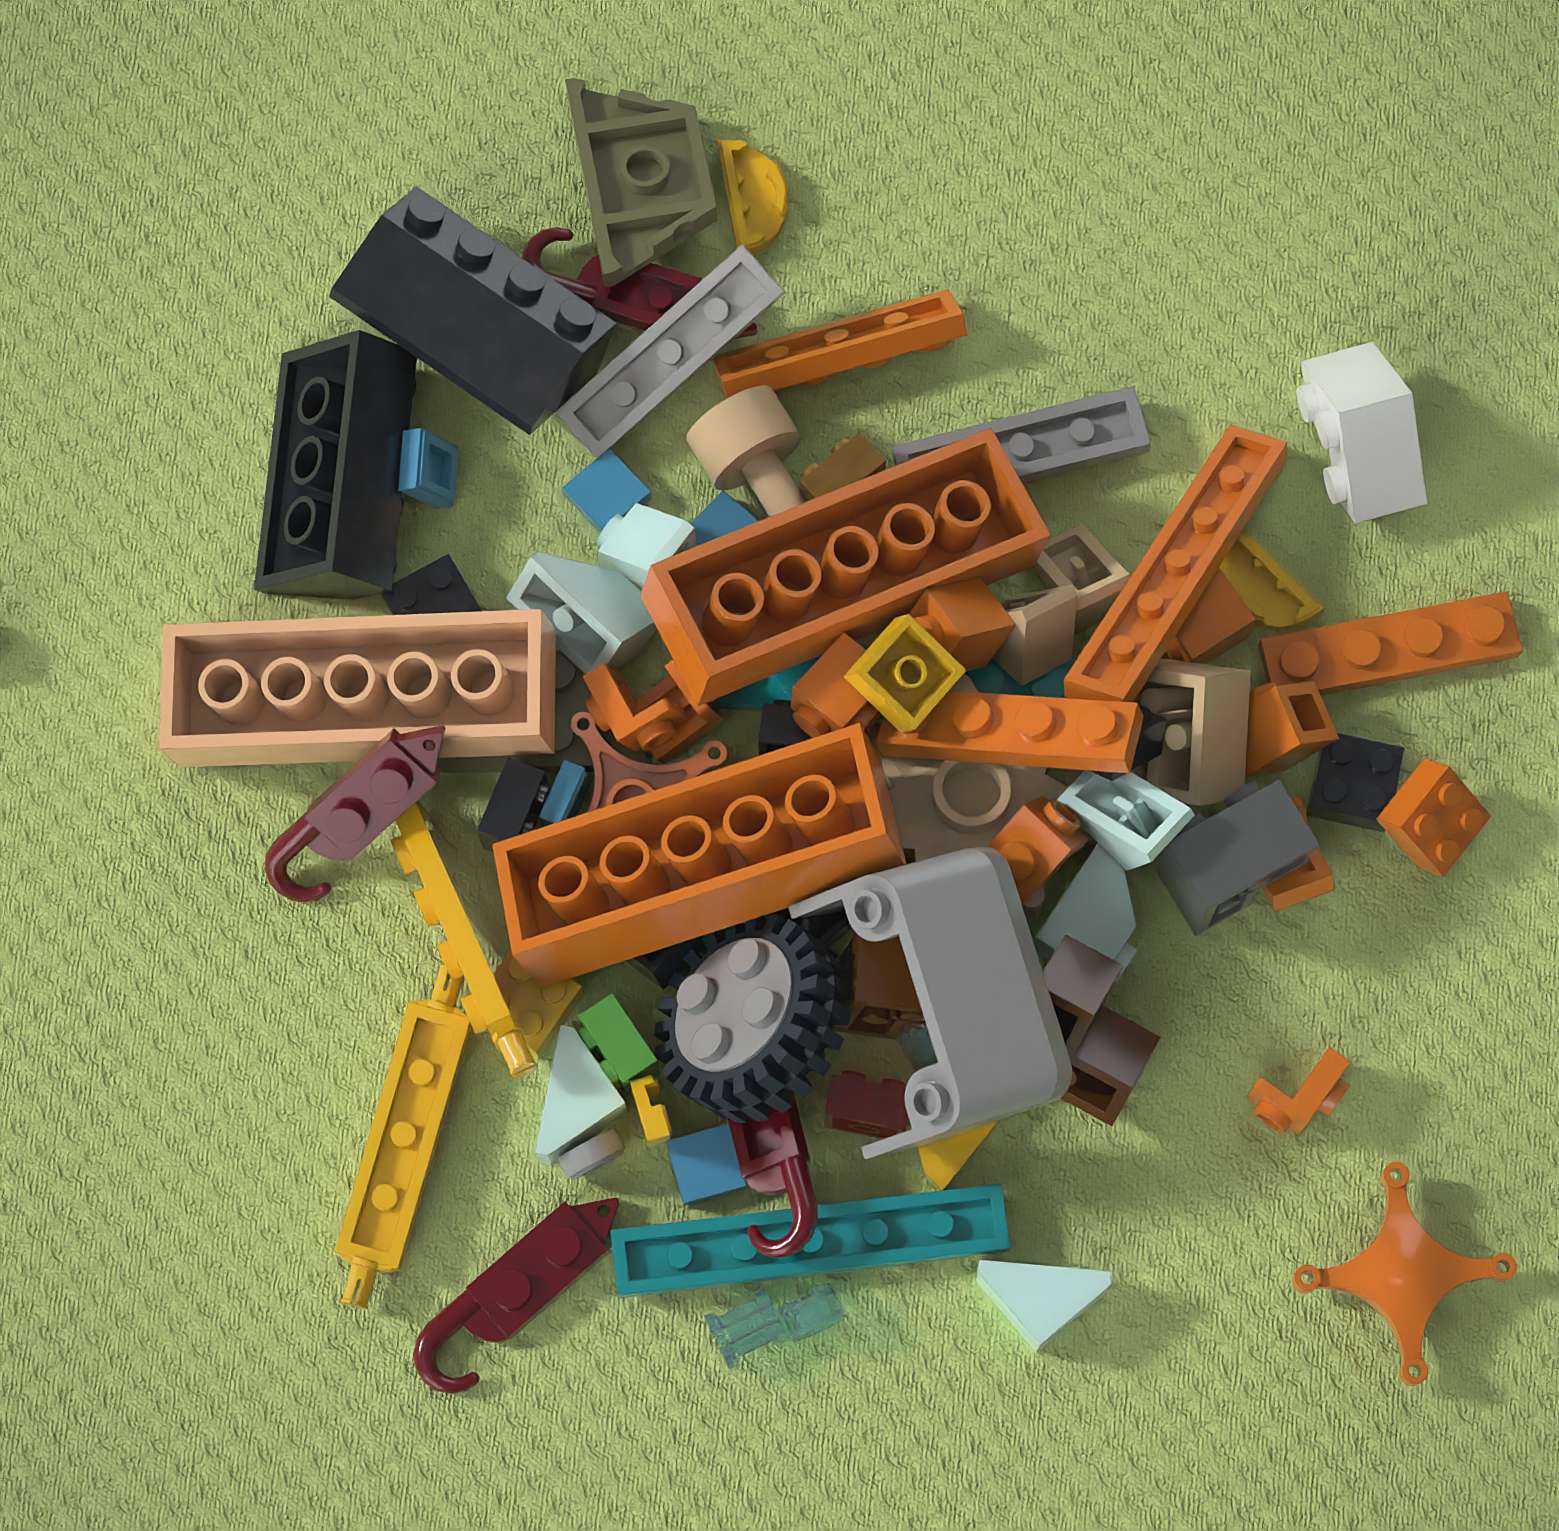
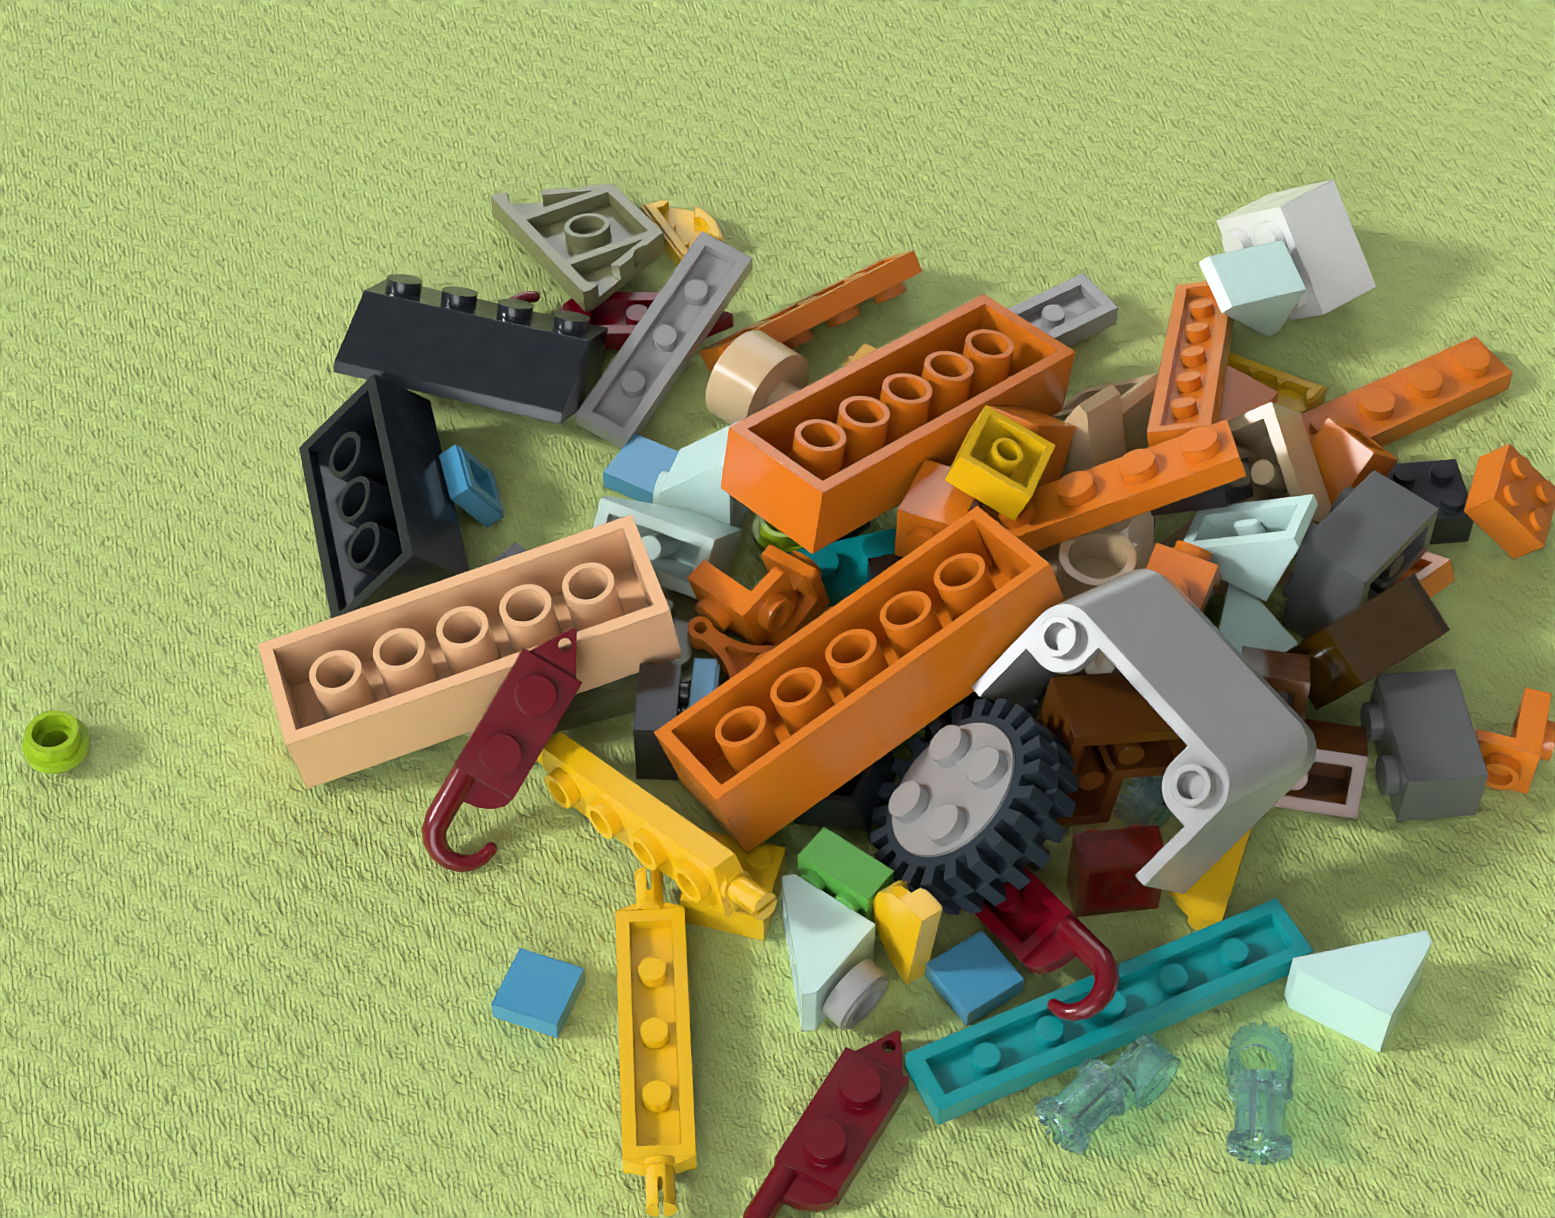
camera: 20 degrees left, 25 degrees down
(320, 1053) = (538, 992): none -> dark azure tile
(901, 1360) = (1260, 1096): none -> clear light blue connector
(1186, 960) = (1369, 640): none -> dark brown slope
(1210, 1069) = (1424, 745): none -> dark grey brick
(1281, 479) = (1255, 285): none -> light aqua slope

